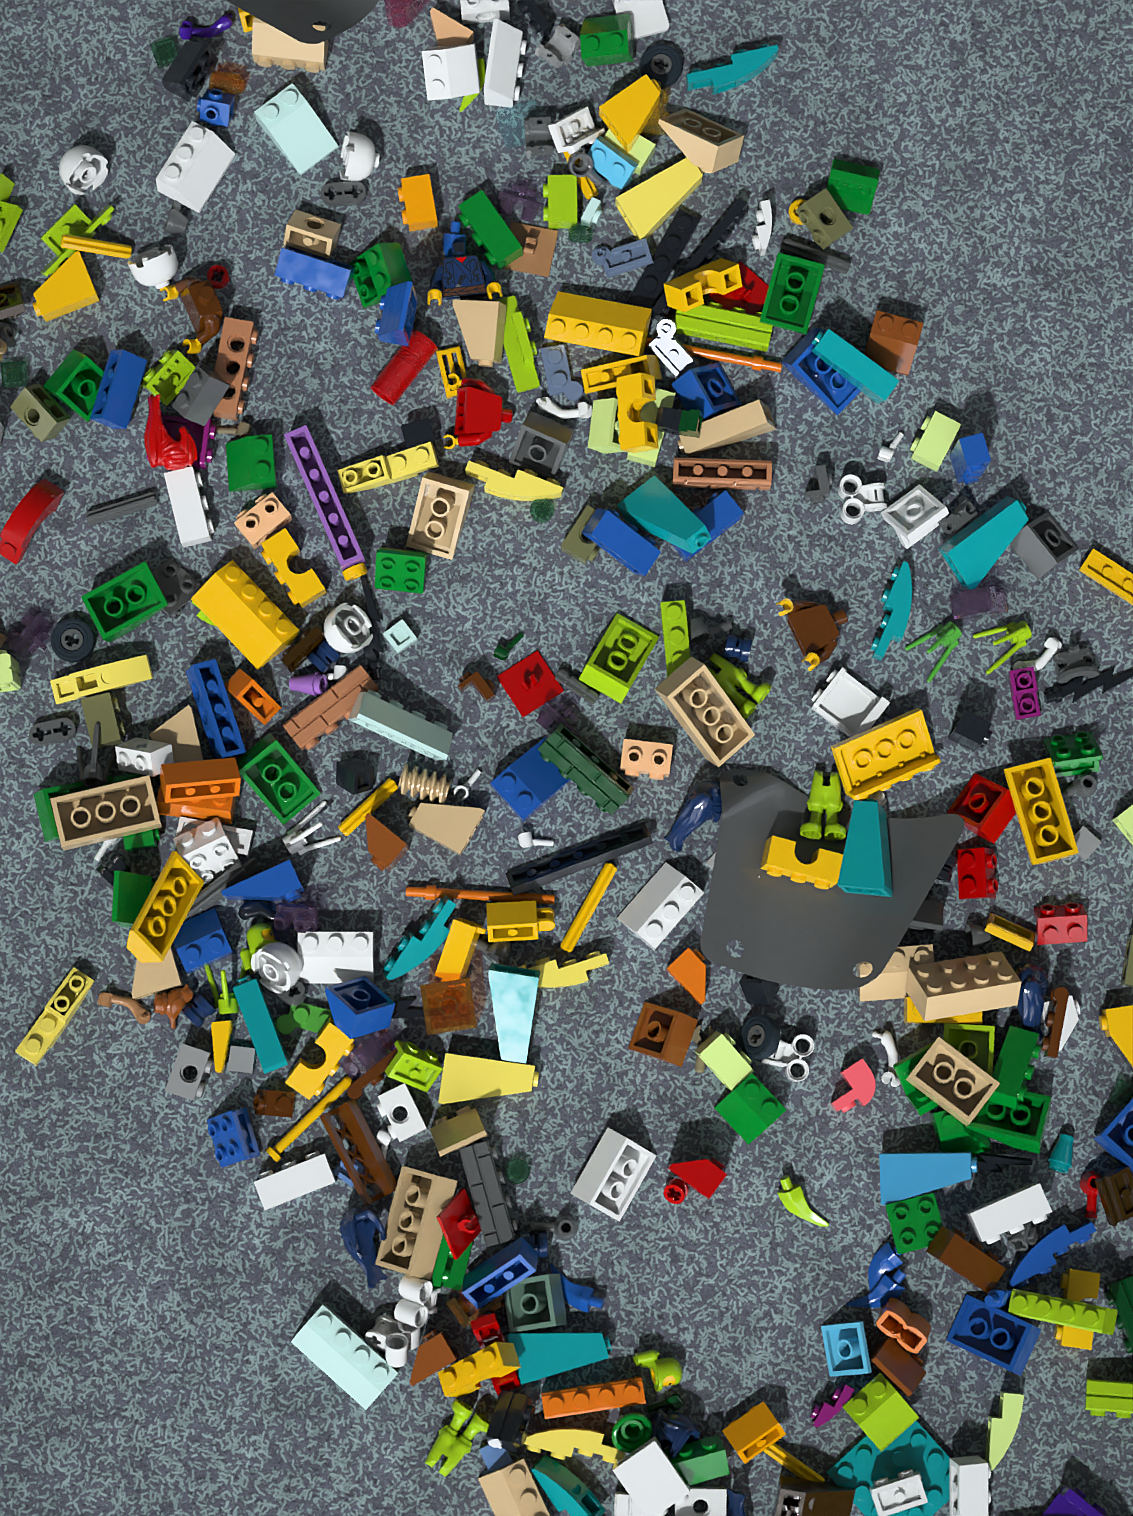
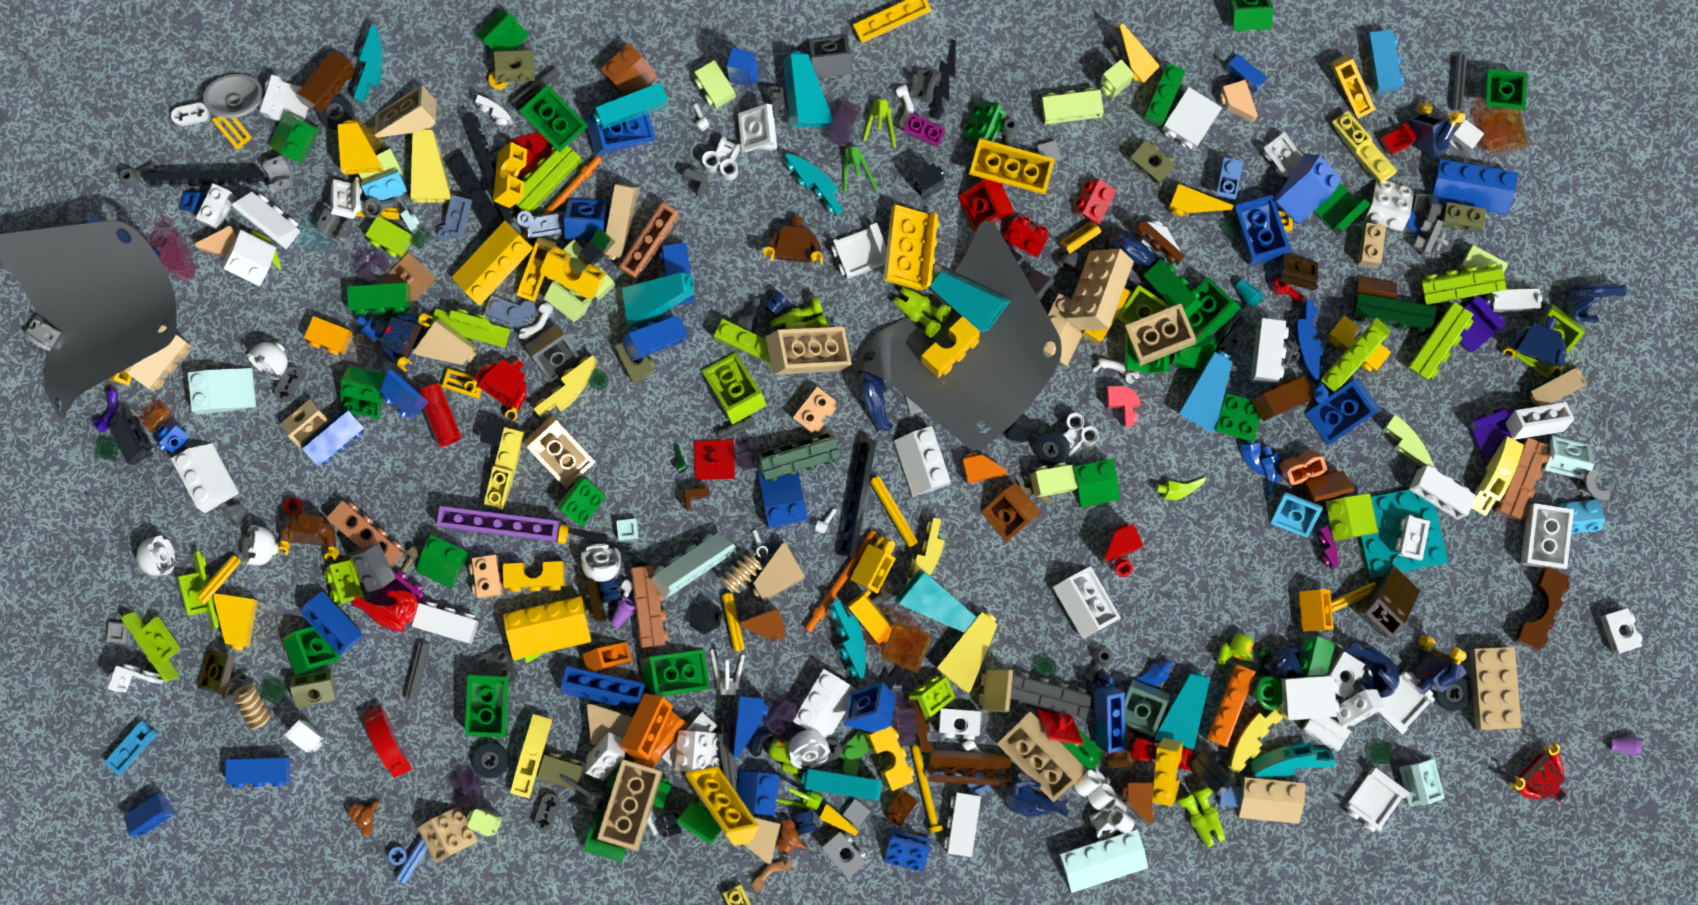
camera: 55 degrees left, 0 degrees up
(686, 36) = (326, 82): none -> reddish brown brick

